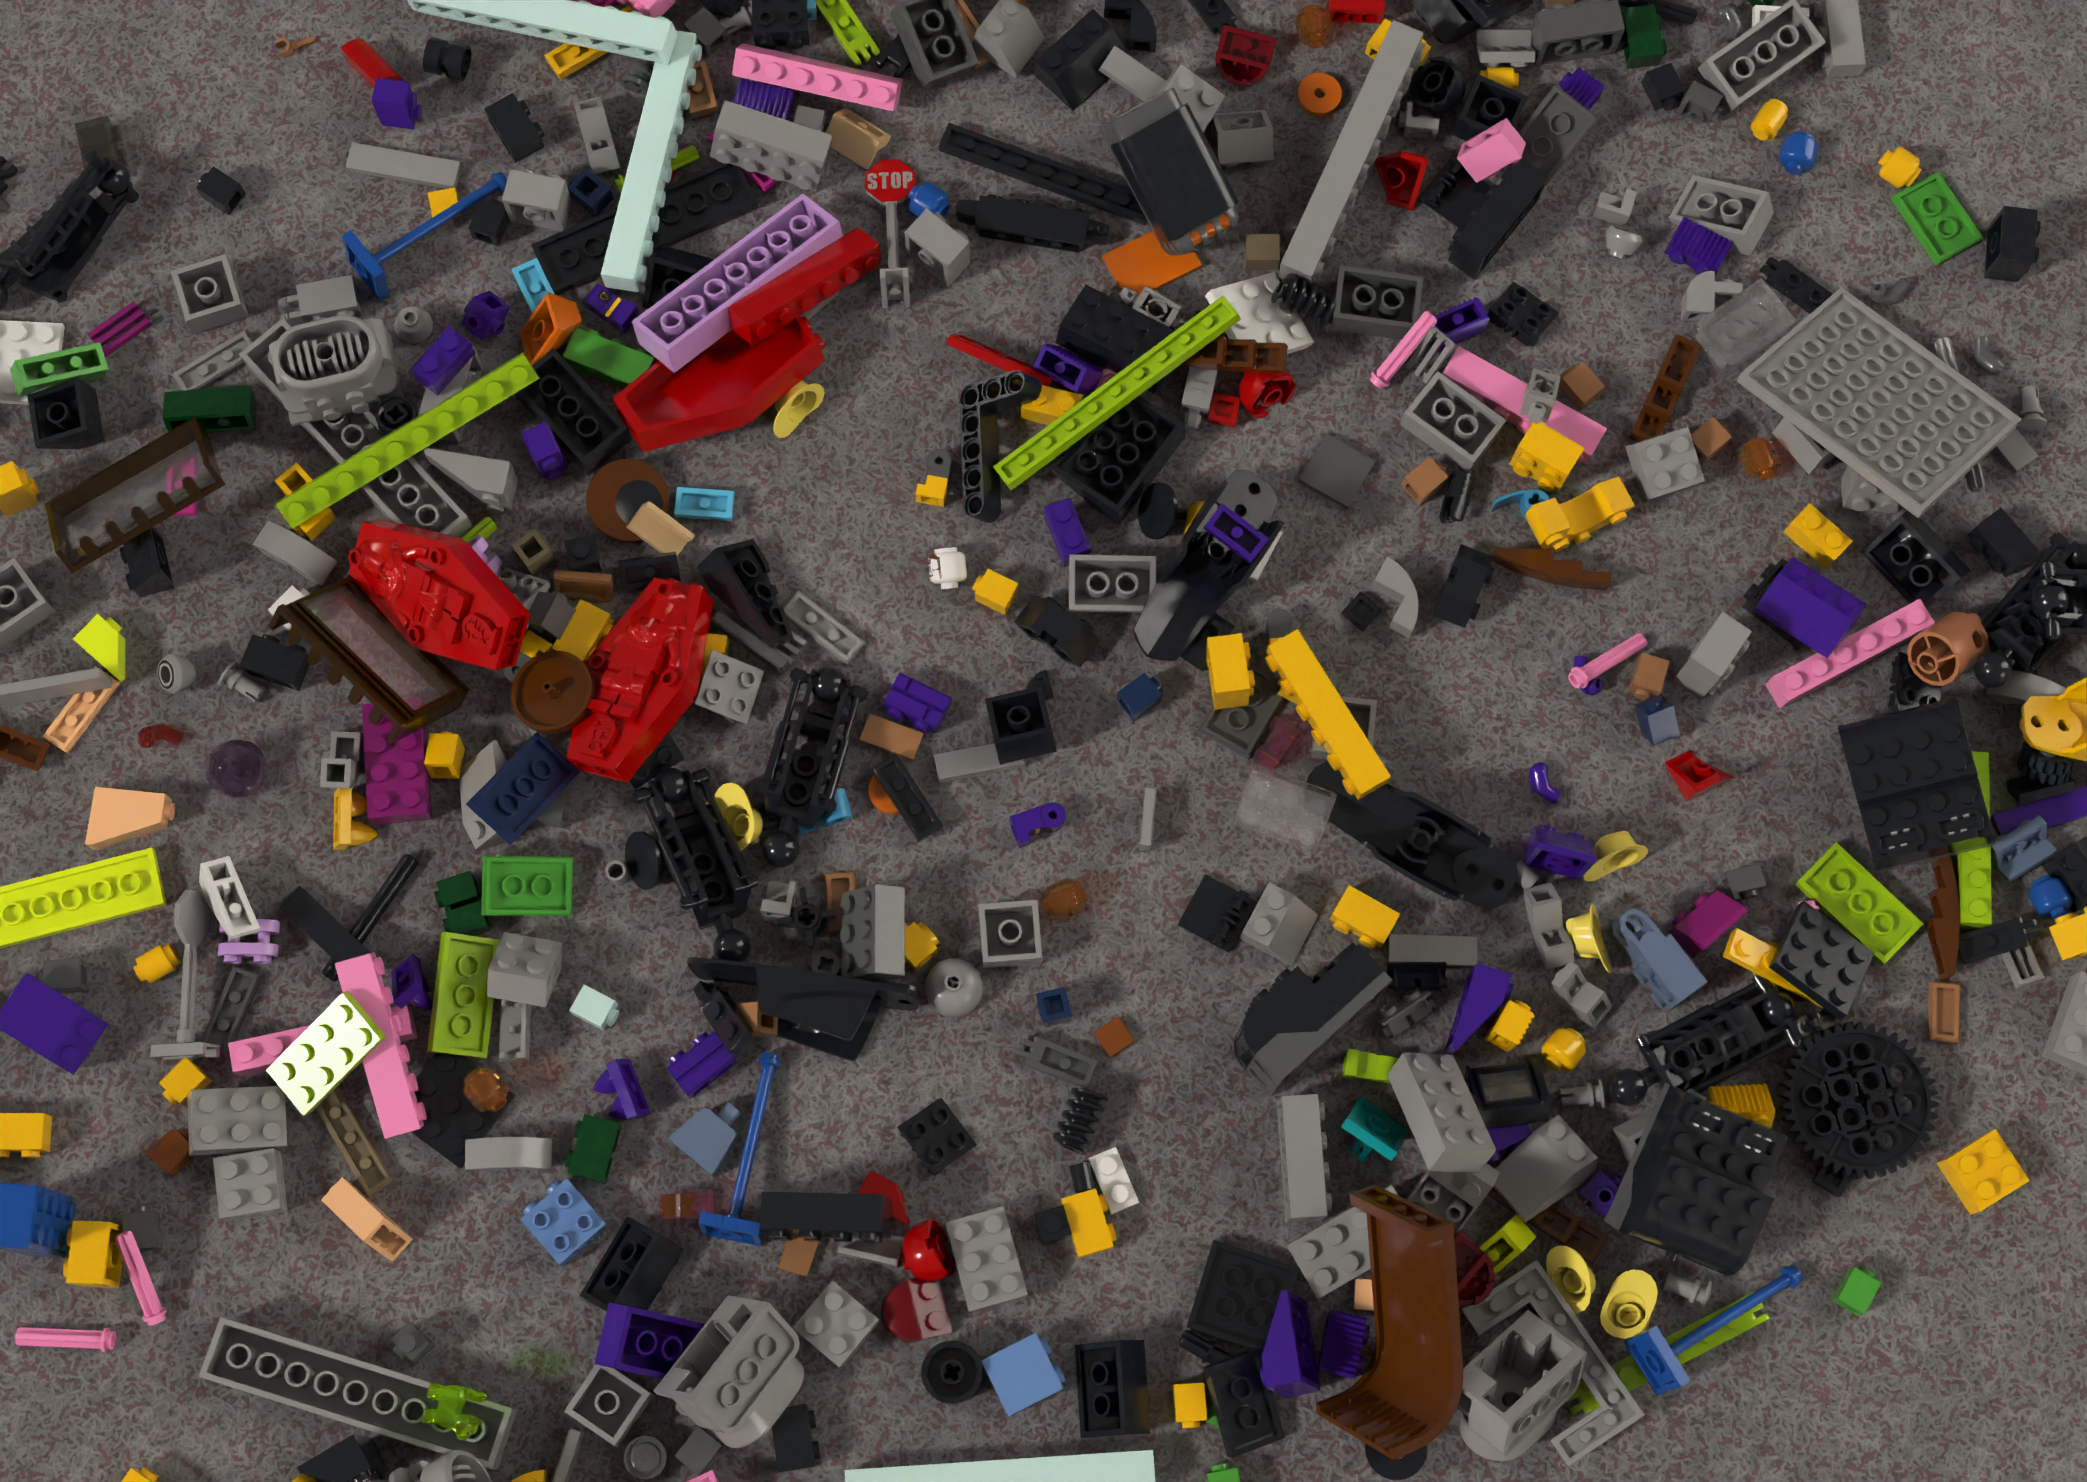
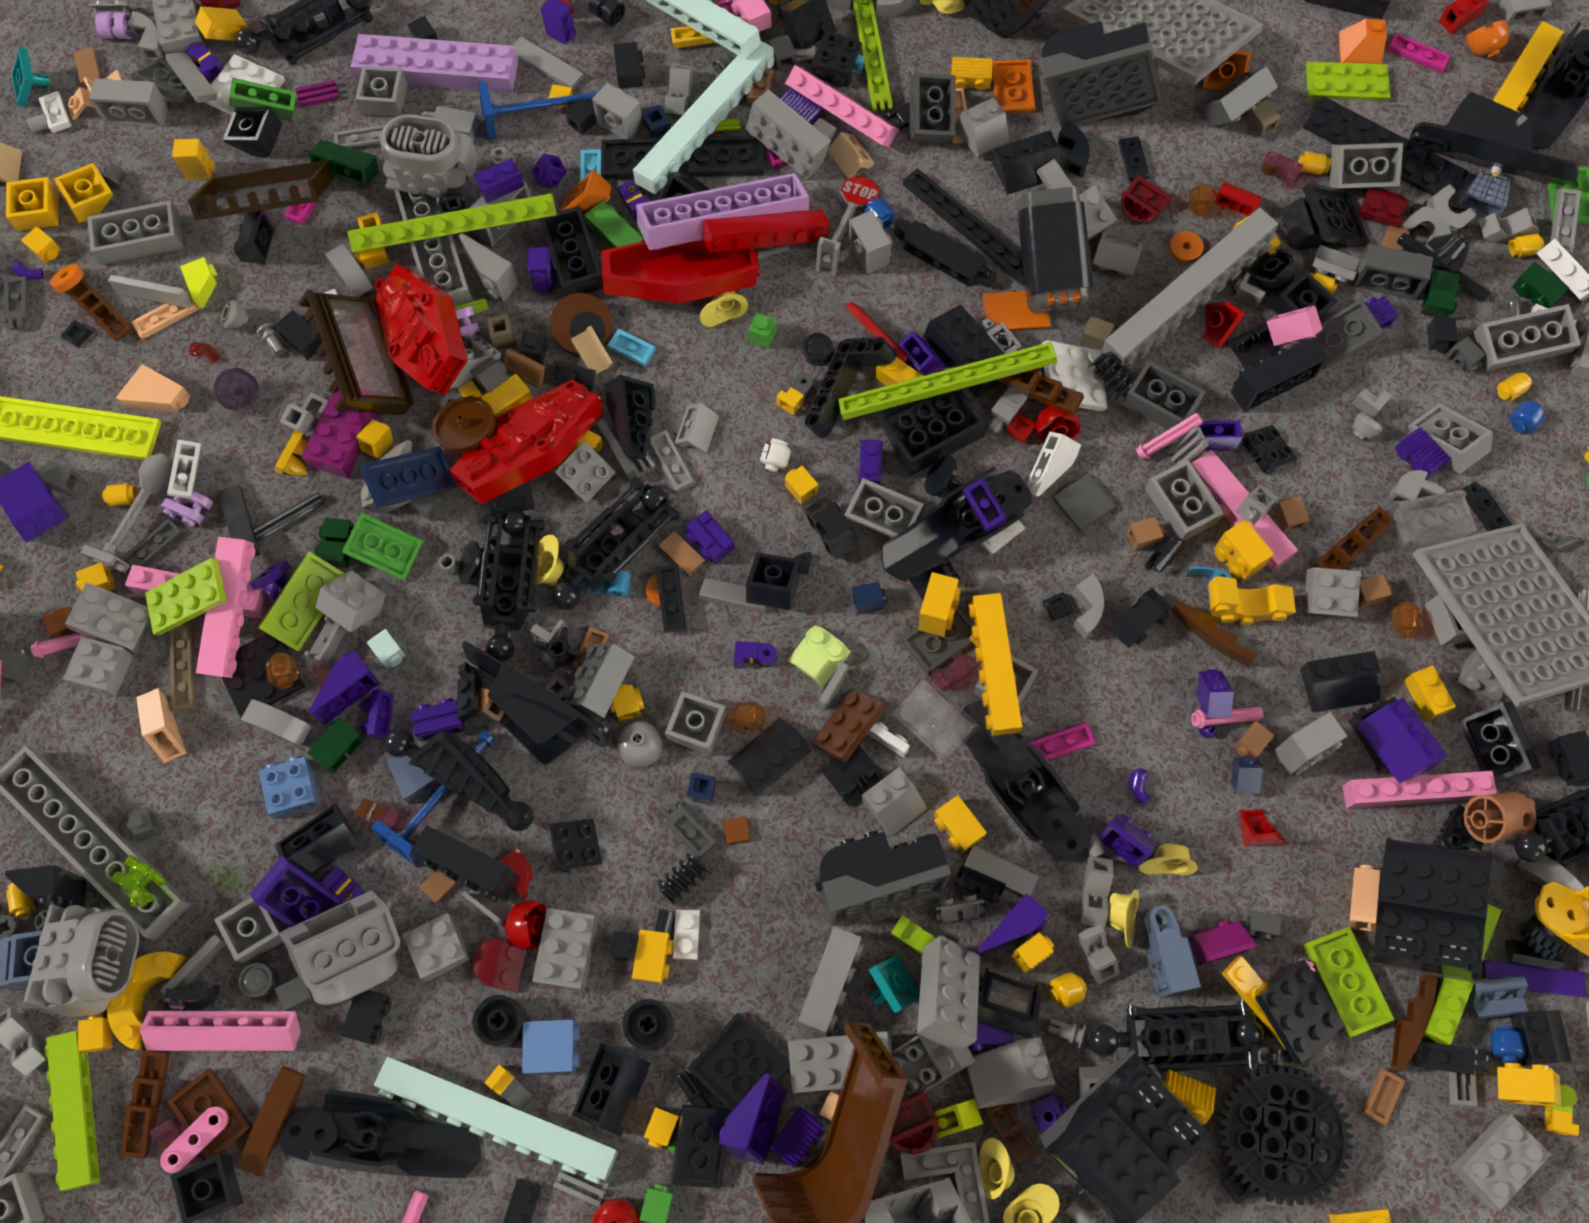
camera: 30 degrees right, 5 degrees down
(182, 1179) = (40, 649): none -> bright pink axle
(262, 223) = (439, 61): none -> lavender brick
(572, 1070) = (344, 686): none -> dark purple slope
(690, 1306) = (342, 884): none -> dark purple leg
(770, 1111) = (462, 771): none -> black piece
(834, 572) = (697, 427): none -> light grey panel
(857, 415) = (762, 330): none -> bright green brick
(935, 411) = (818, 349): none -> black wheel
(999, 1440) = (509, 1087): none -> leg
(1110, 933) = (769, 755): none -> black slope
(1112, 1314) = (641, 1013): none -> black brick
(1113, 789) = (819, 655): none -> yellowish green slope
(1187, 859) = (848, 725): none -> reddish brown plate
(1249, 855) = (894, 742): none -> white plate
(1280, 439) = (1054, 459): none -> white slope
(1438, 769) = (1065, 741): none -> dark pink tile
(1584, 641) = (1214, 693): none -> dark purple brick
(1717, 563) = (1342, 681): none -> black slope
(1840, 803) = (1365, 898): none -> light nougat slope

